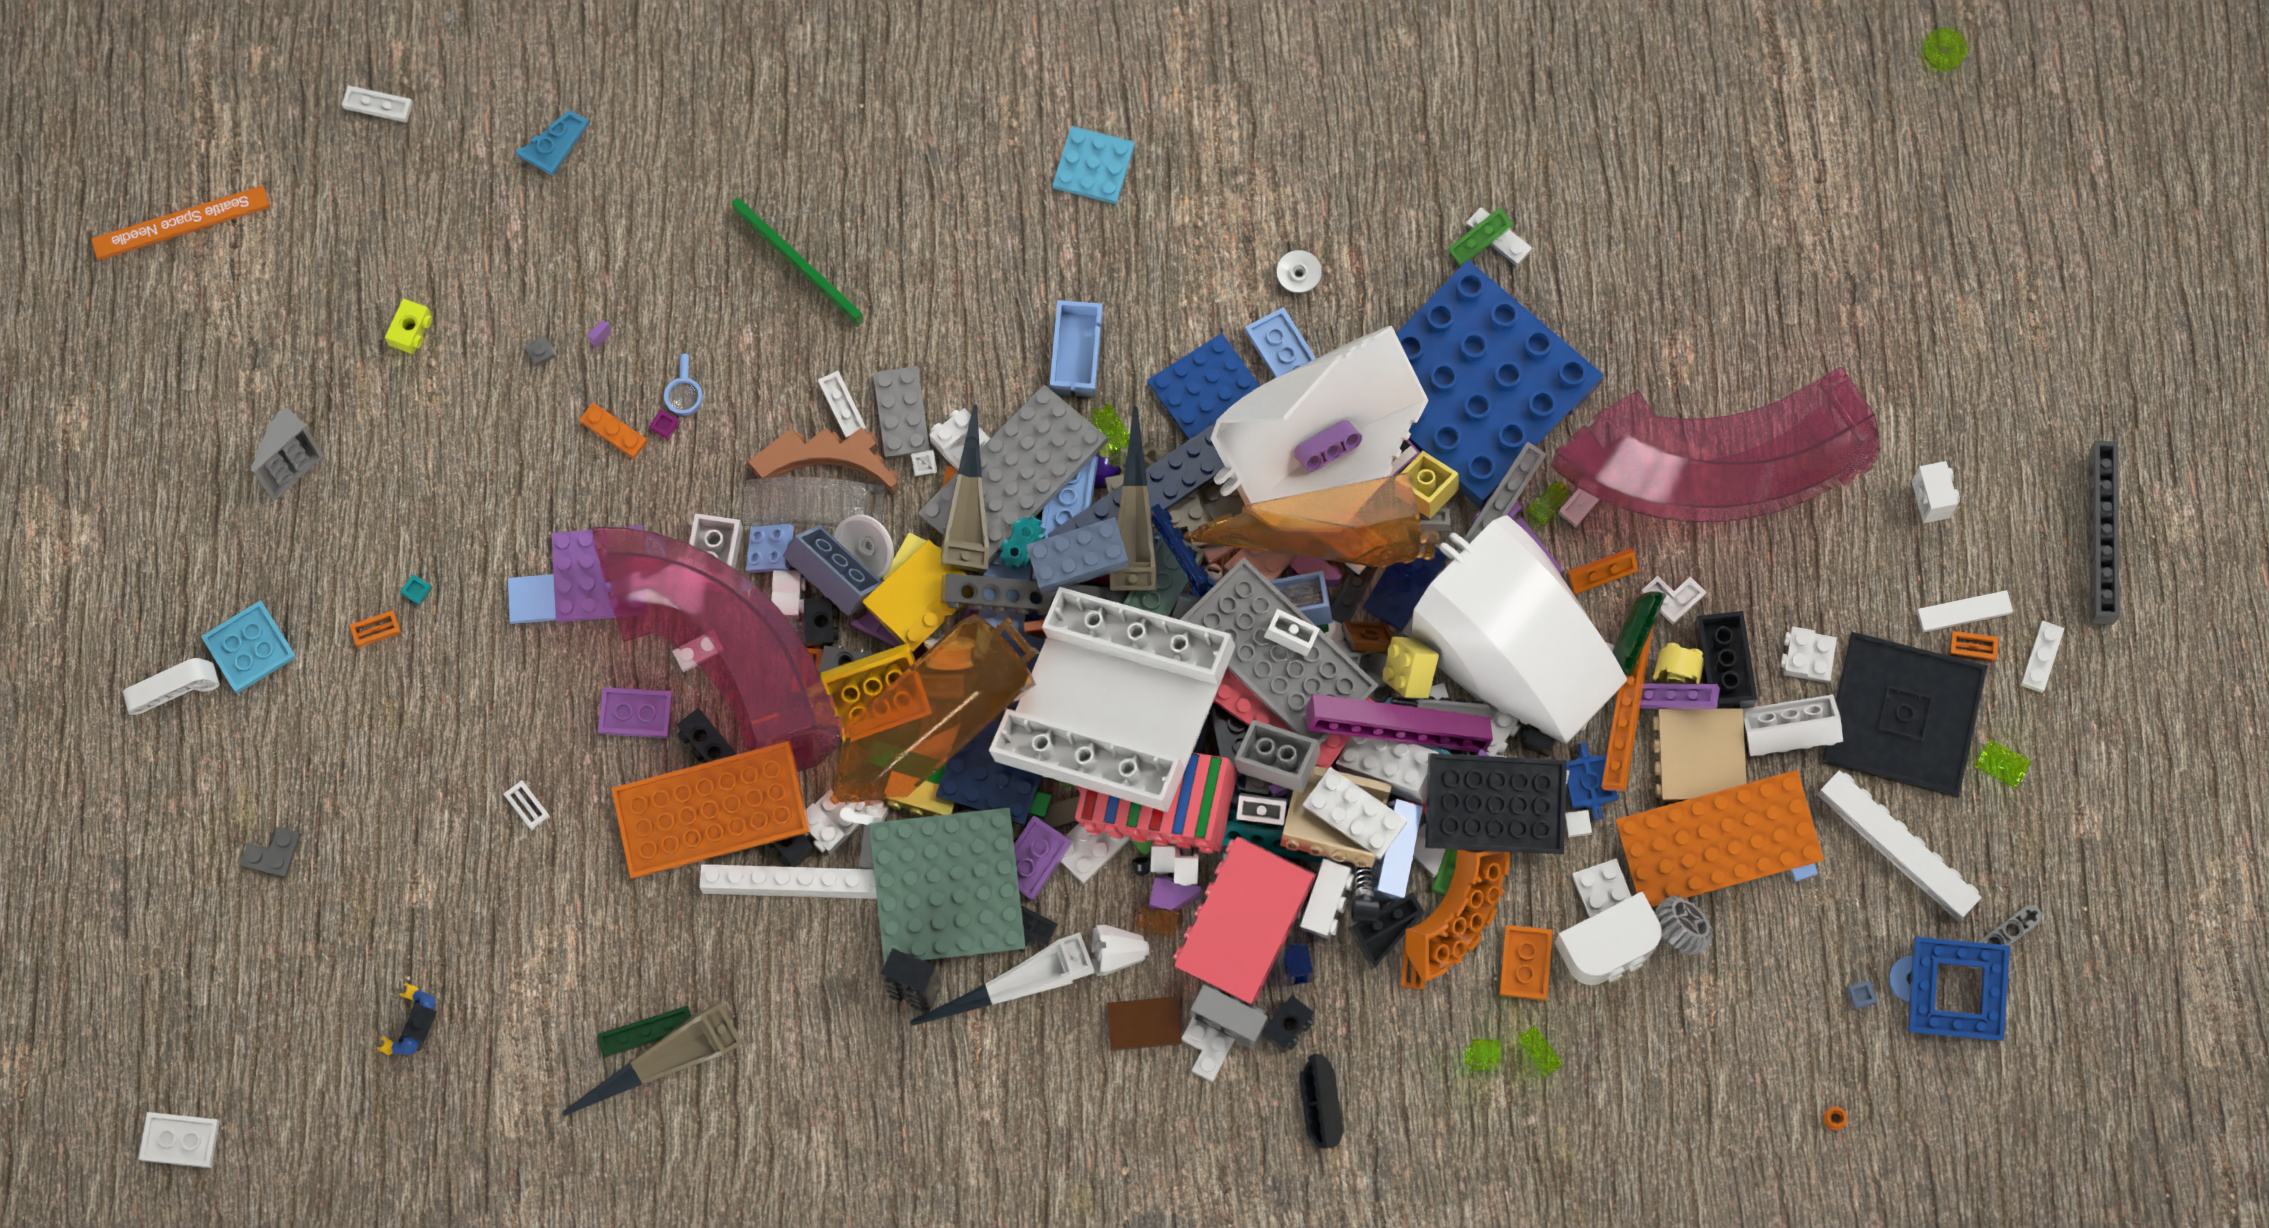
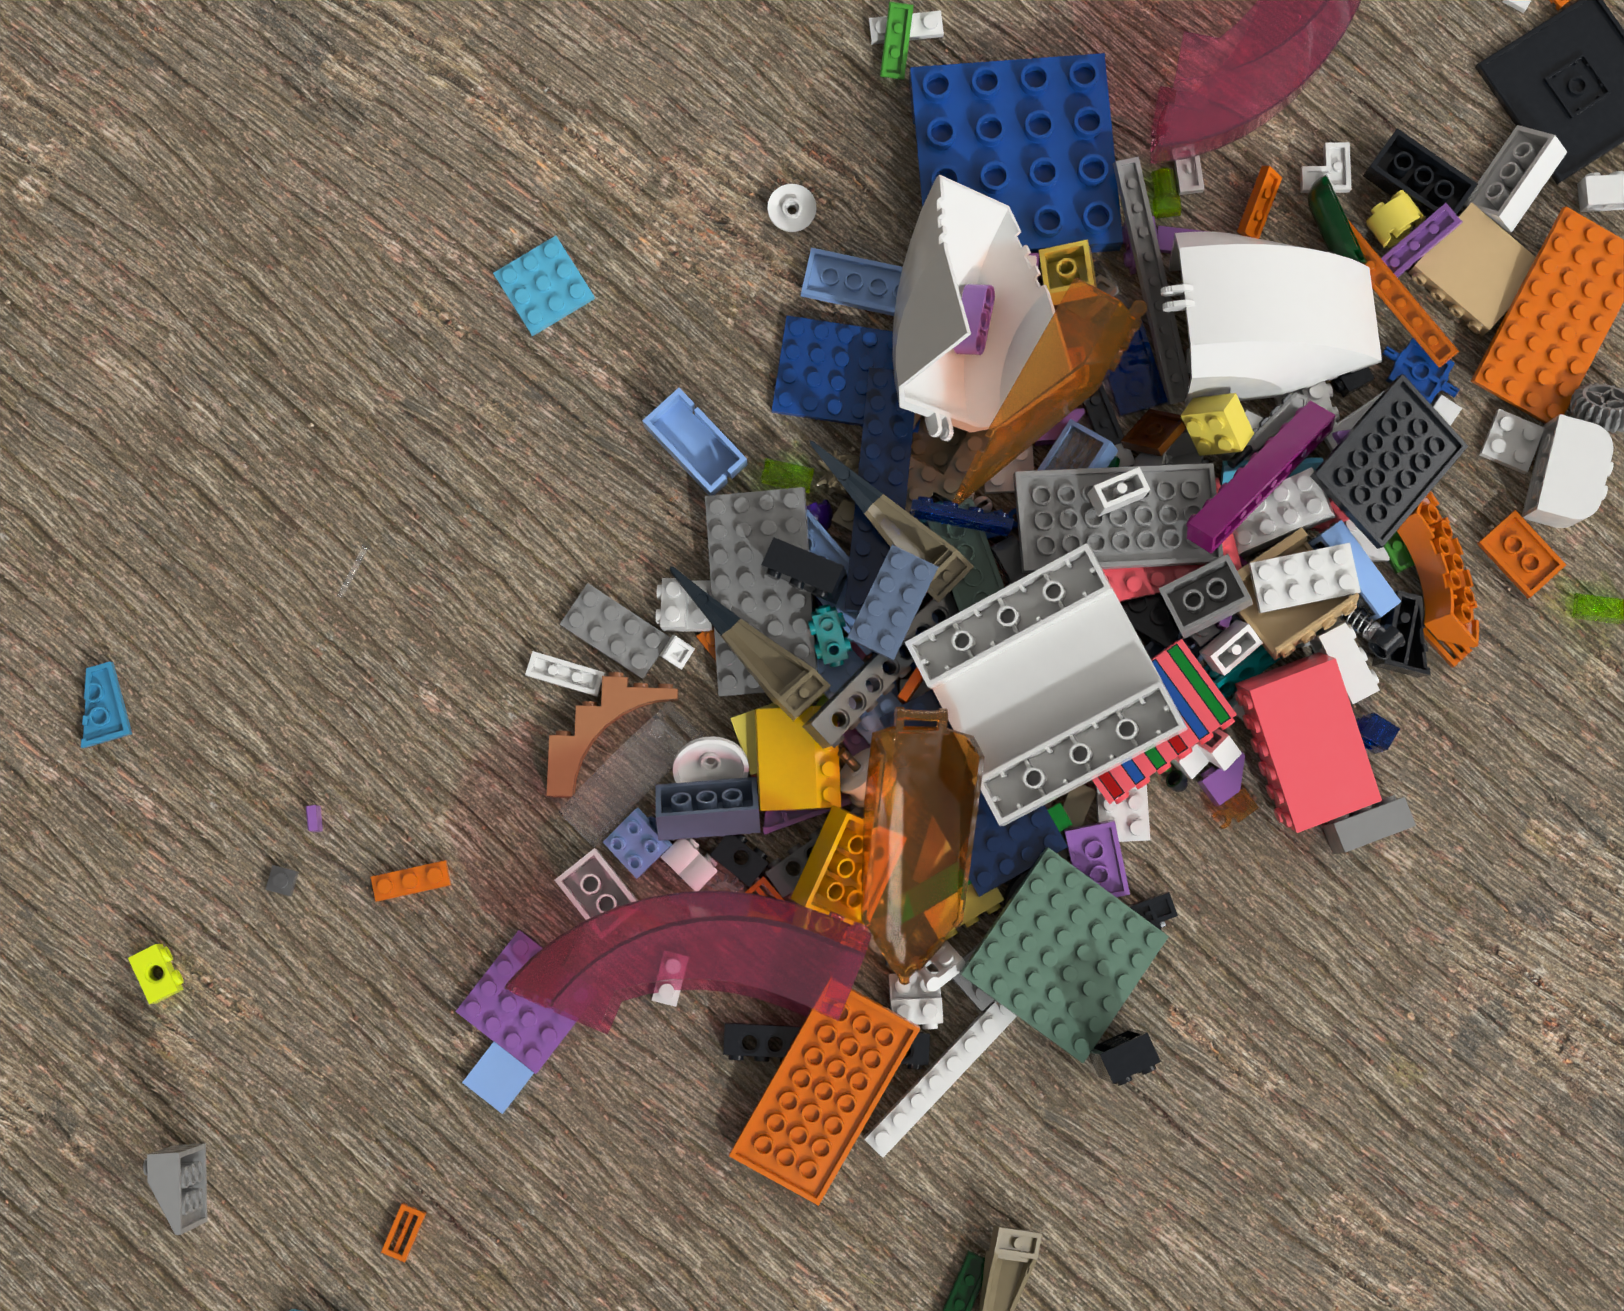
camera: 55 degrees left, 10 degrees up
(416, 589) = (400, 1168): teal tile -> none
(538, 820) = (677, 1226): white tile -> none
(635, 712) = (678, 1077): medium lavender plate -> none
(664, 424) = (445, 834): magenta tile -> none
(683, 394) = (433, 795): piece -> none
(797, 261) = (403, 599): green tile -> none
(1048, 969) = (1198, 932): white plate -> none
(1049, 484) = (805, 570): none -> black wedge
(1116, 949) = (1232, 865): white cone -> none
(1144, 1023) = (1307, 894): reddish brown tile -> none
(1213, 1045) = (1375, 858): white plate -> none
(1294, 1011) = (1418, 768): black brick -> none
(1321, 1102) = (1496, 815): black brick -> none
(1483, 1055) = (1573, 654): clear neon green brick -> none
(1808, 655) = (1466, 113): white plate -> none

